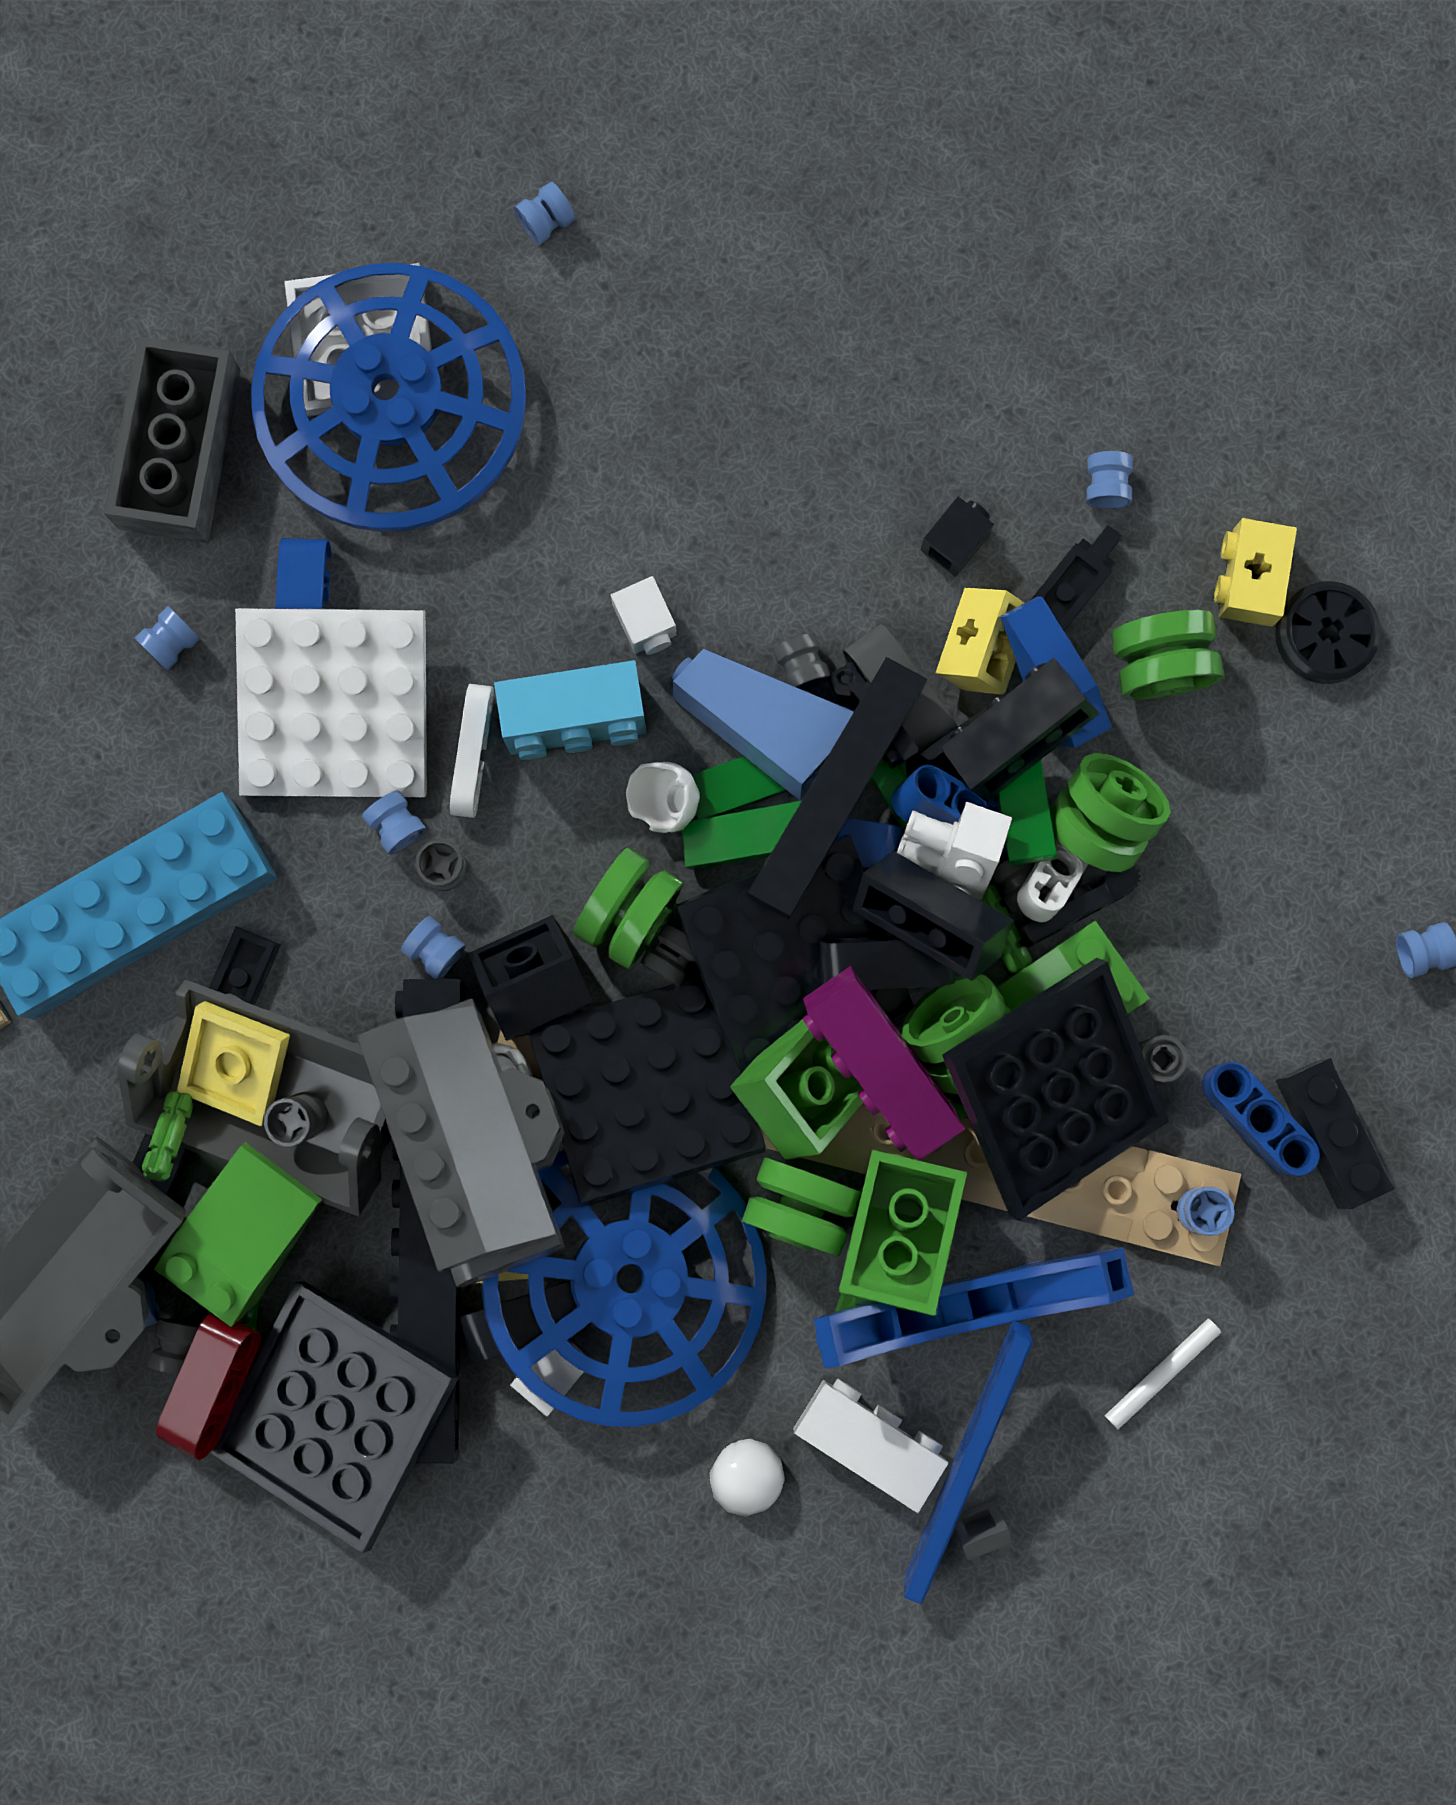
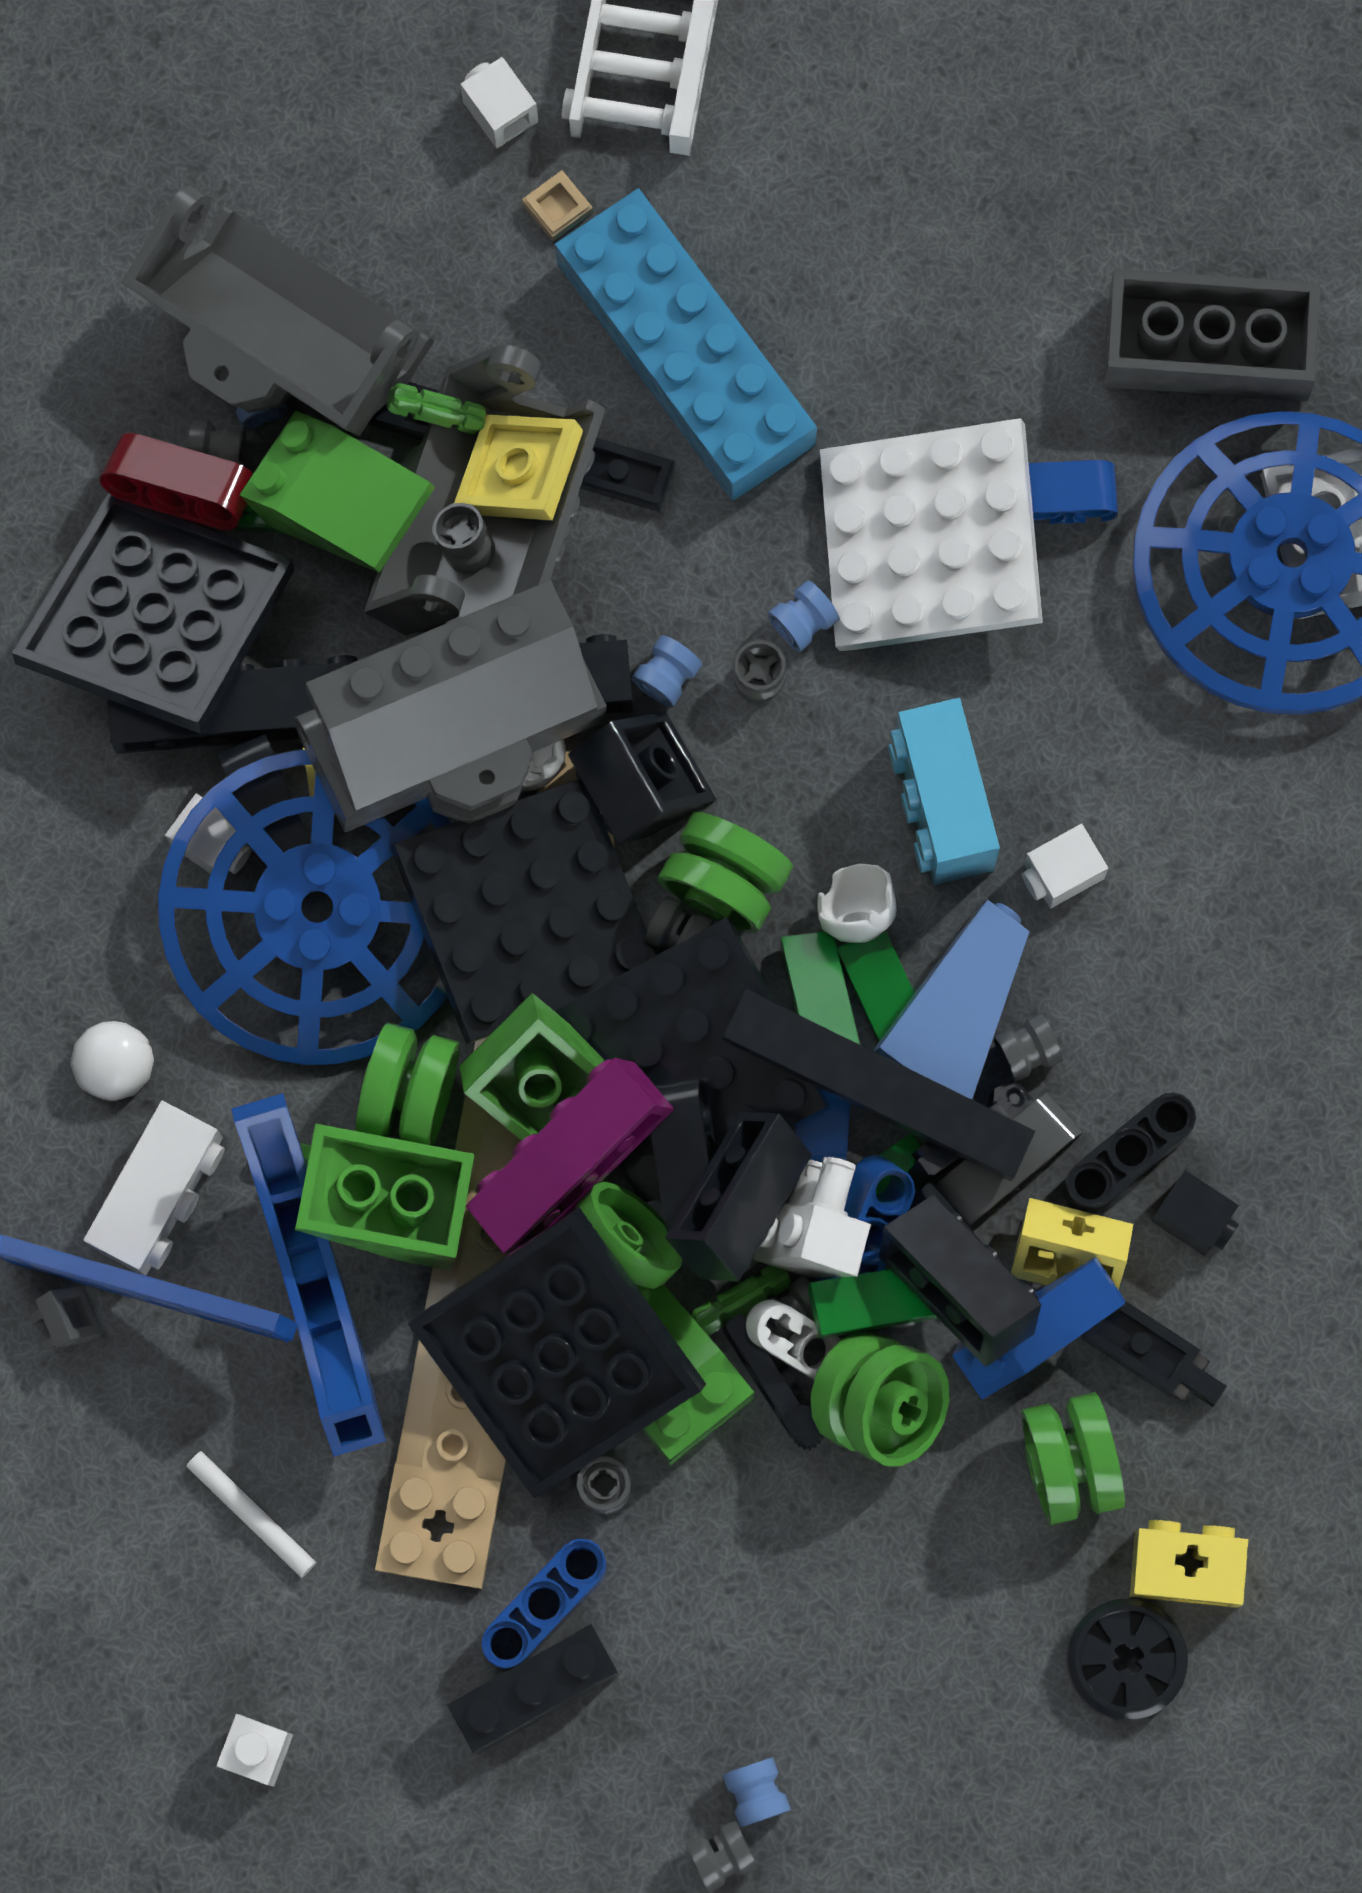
camera: 90 degrees right, 5 degrees down
(167, 638) = (988, 354): medium blue wheel -> none
(472, 740) = (876, 690): white beam -> none
(899, 564) = (1147, 1135): none -> black beam
(1109, 479) = (1283, 1387): medium blue wheel -> none
(1214, 1210) = (429, 1529): medium blue wheel -> none
(1375, 1382) = (254, 1750): none -> white brick

